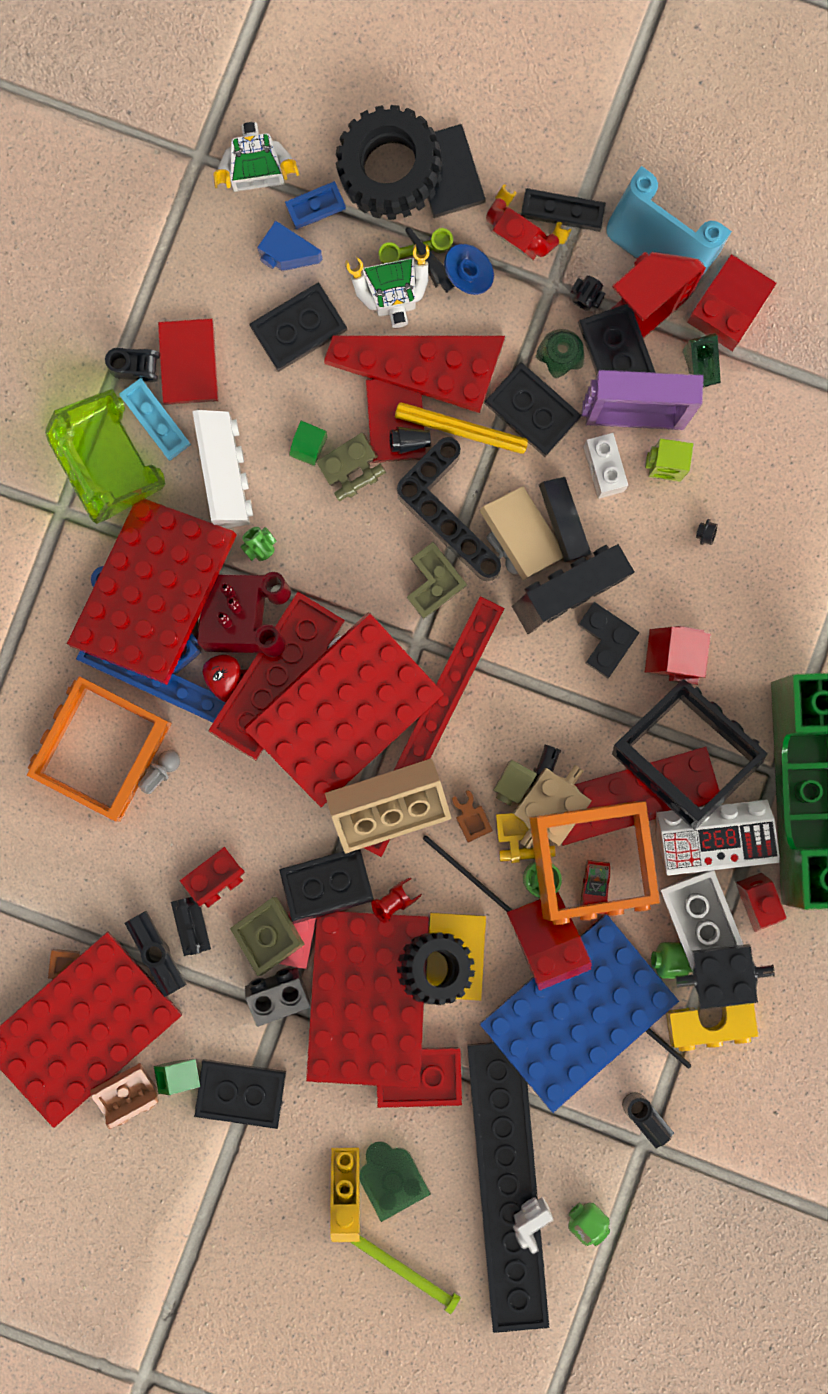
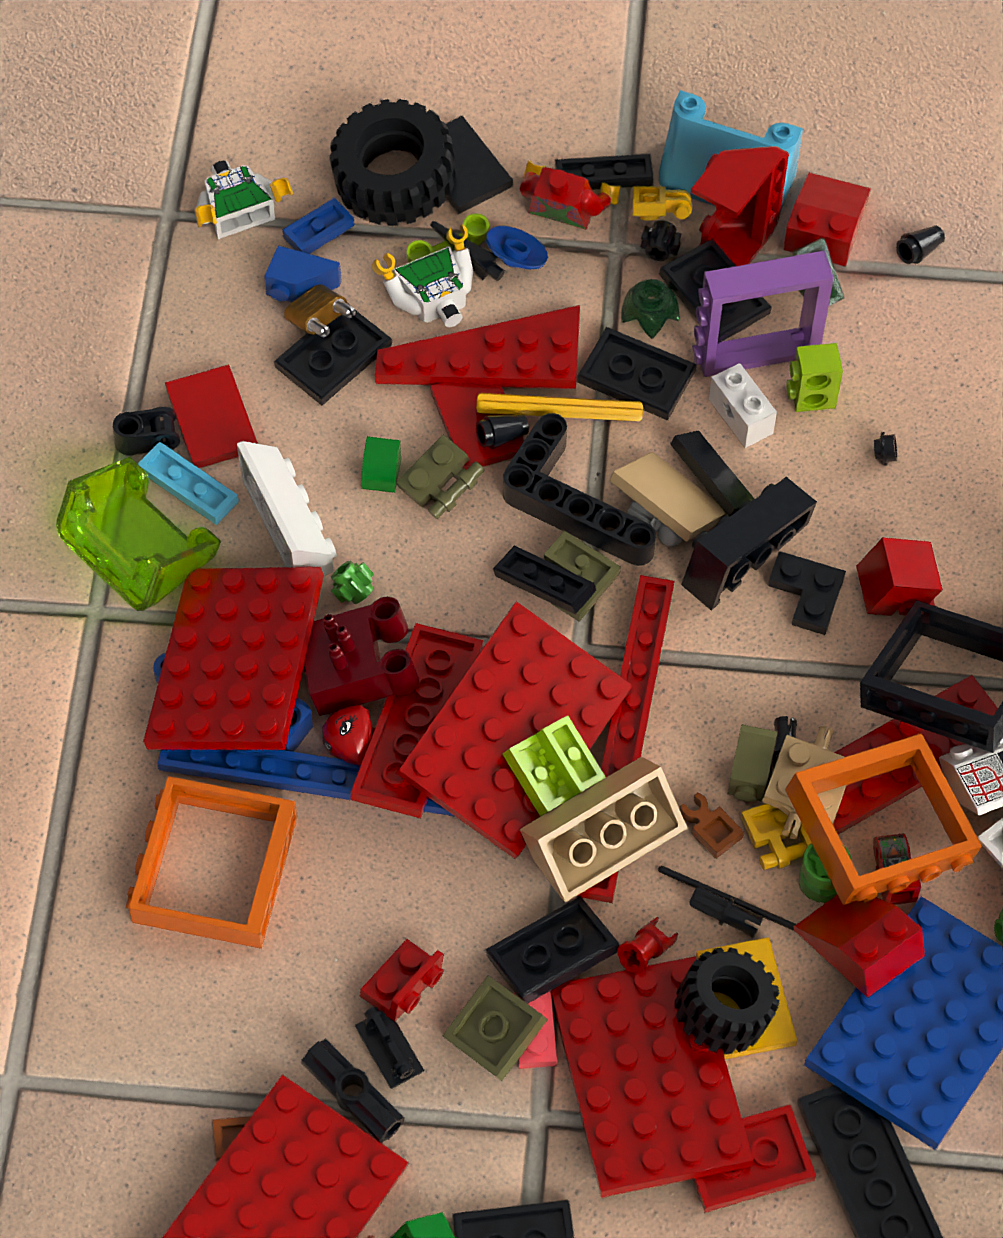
camera: 15 degrees left, 25 degrees down
(167, 762) = (298, 871): light grey axle -> none
(280, 1002) = (533, 1107): black brick -> none
(293, 287) = (317, 309): none -> pearl gold piece
(364, 750) = (553, 765): none -> lime slope
(405, 581) = (544, 579): none -> black tile
(461, 887) = (725, 911): none -> black axle
(596, 256) = (656, 201): none -> yellow plate
(796, 350) = (919, 244): none -> black cone

